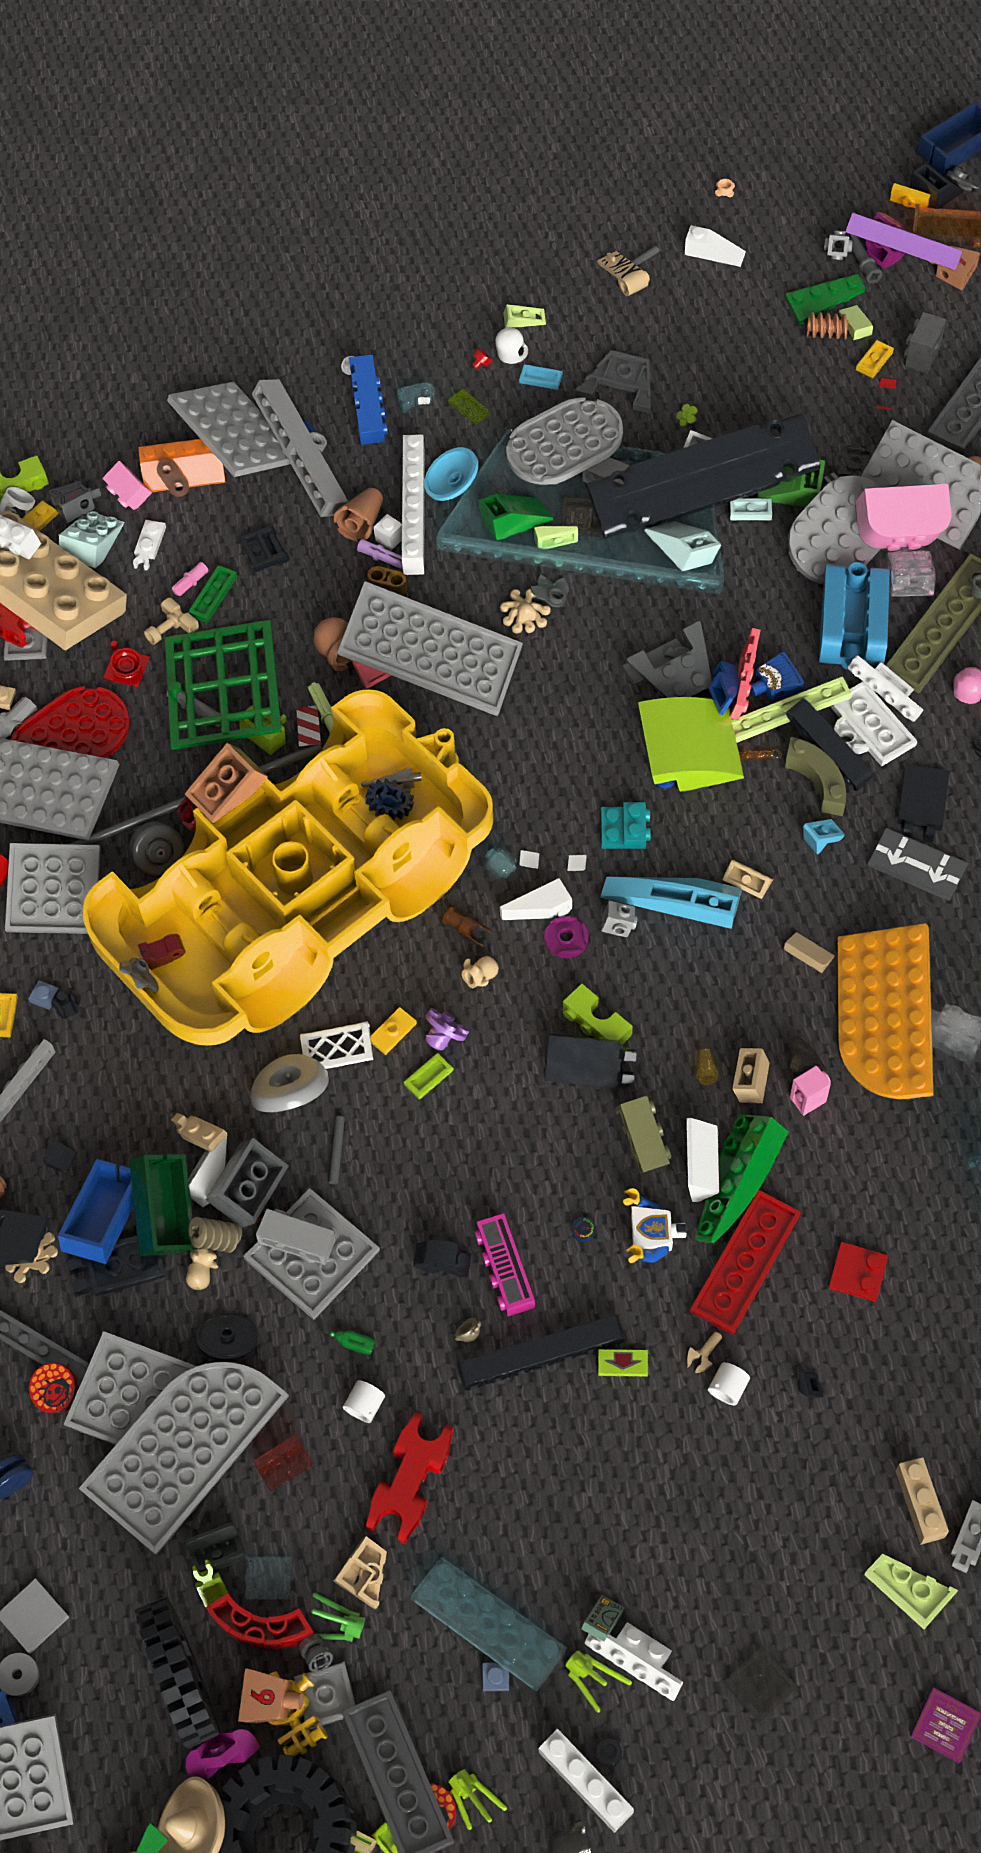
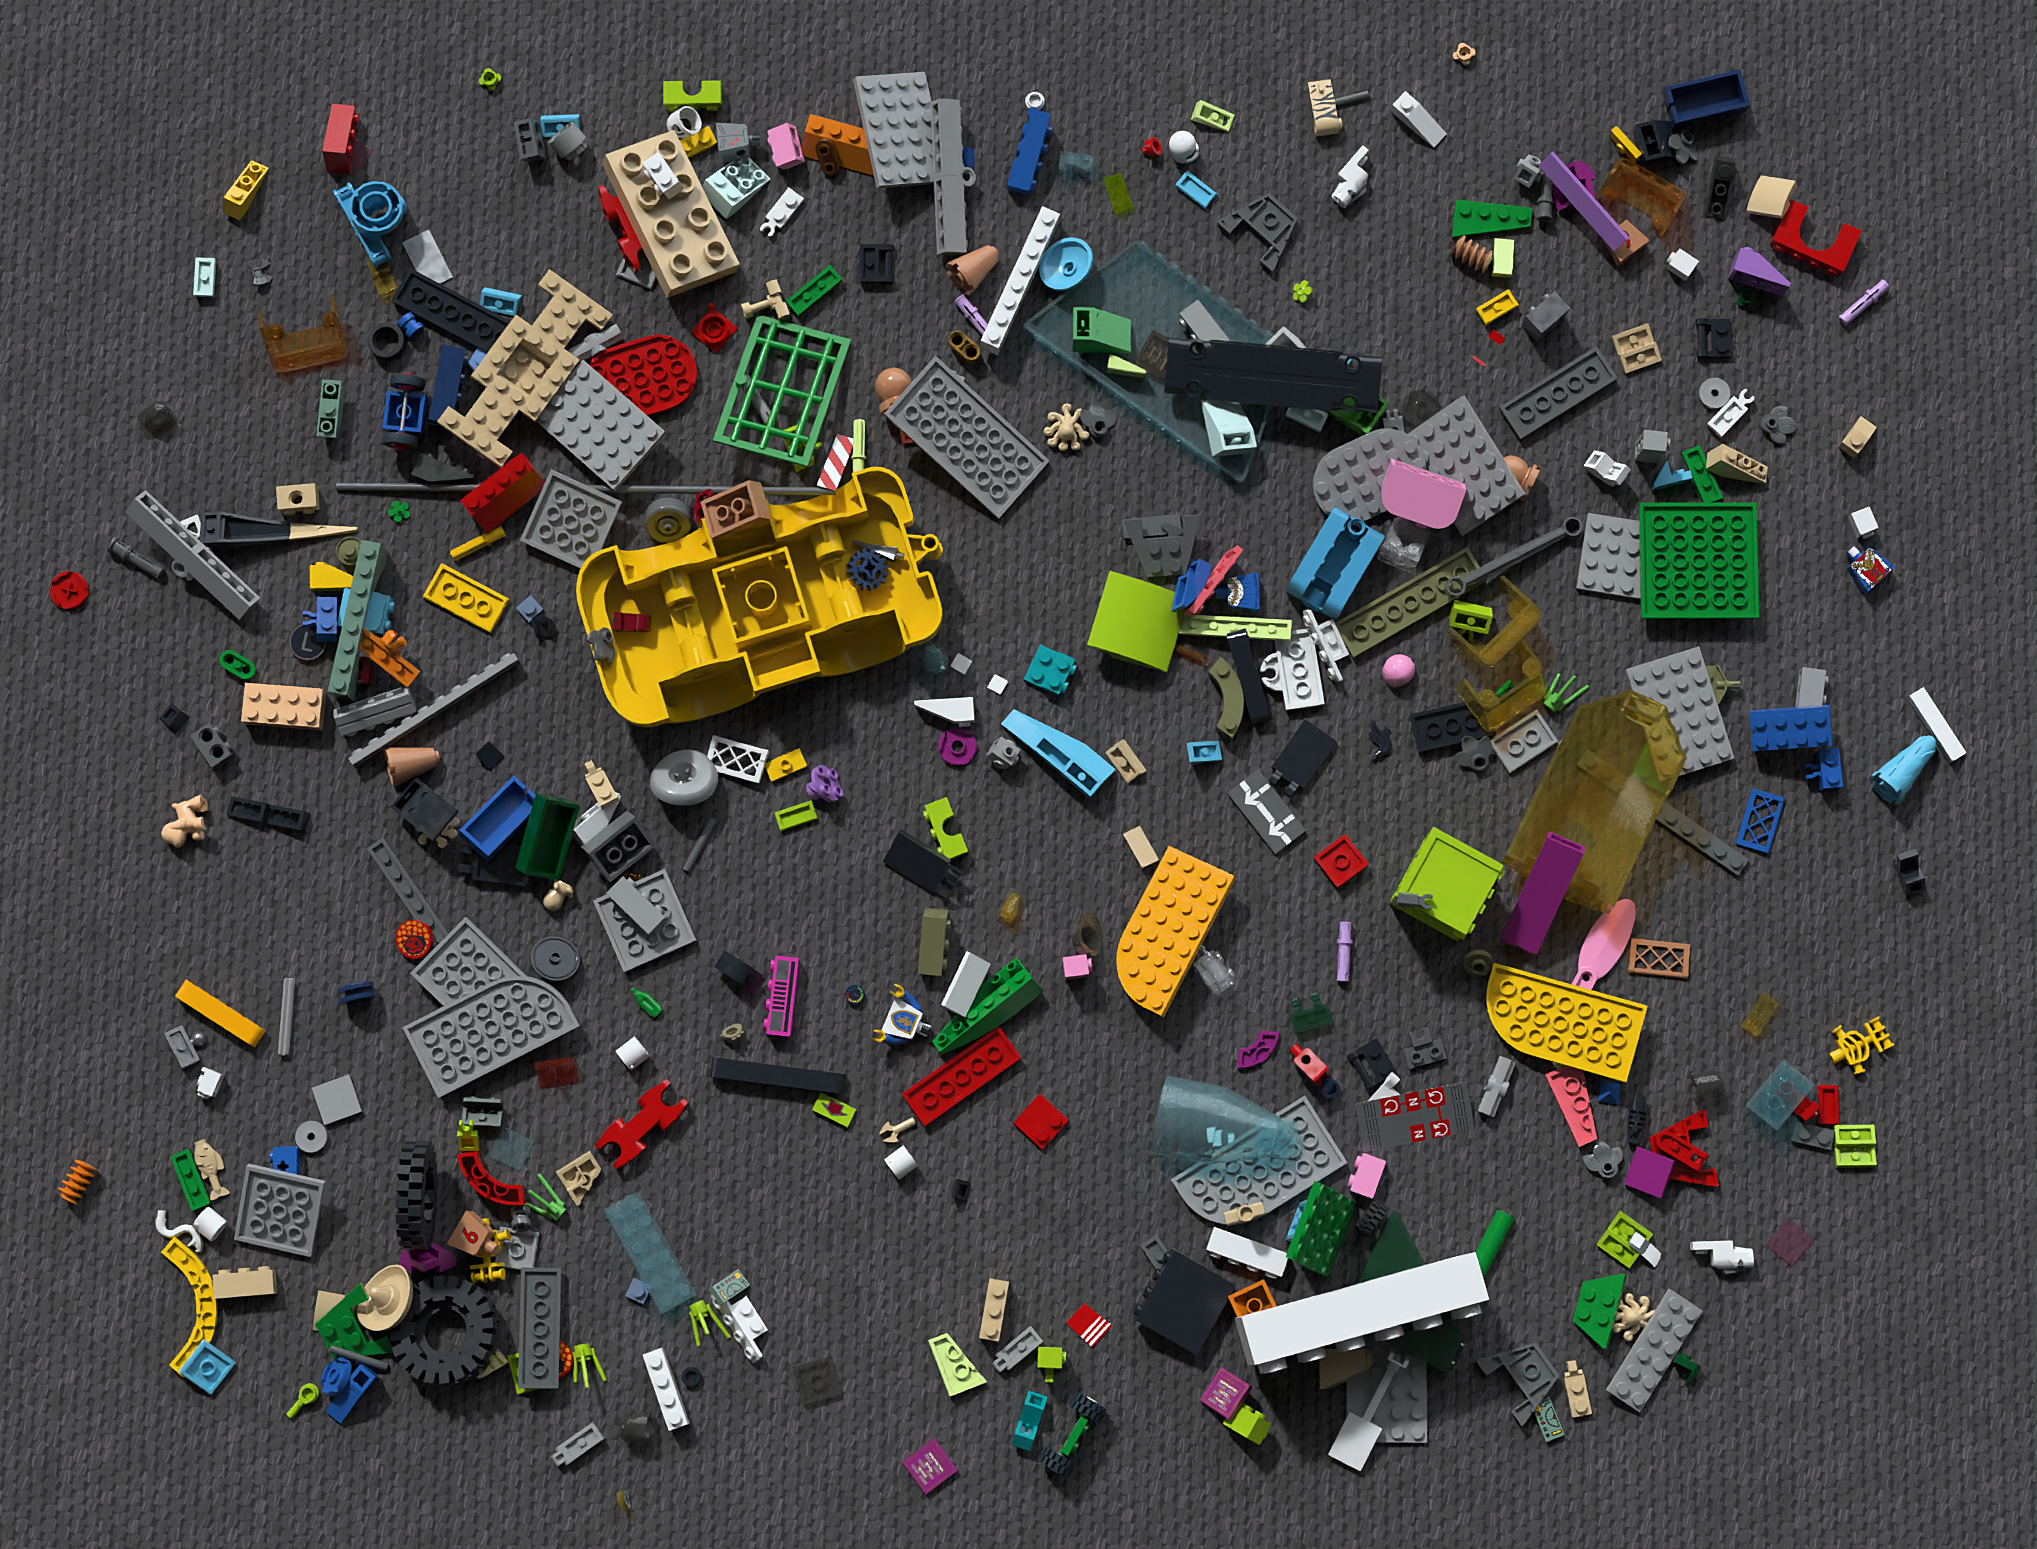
camera: 25 degrees right, 20 degrees up
(190, 579) = (801, 266): bright pink axle -> none
(214, 1234) = (577, 876): dark tan piece -> none
(388, 532) = (987, 298): white brick -> none
(464, 924) = (882, 701): reddish brown piece -> none
(480, 972) = (876, 747): tan animal -> none
(564, 441) = (1176, 279): light grey plate -> none
(681, 313) = (1352, 179): none -> white plate
(751, 1075) = (1038, 933): tan brick -> none

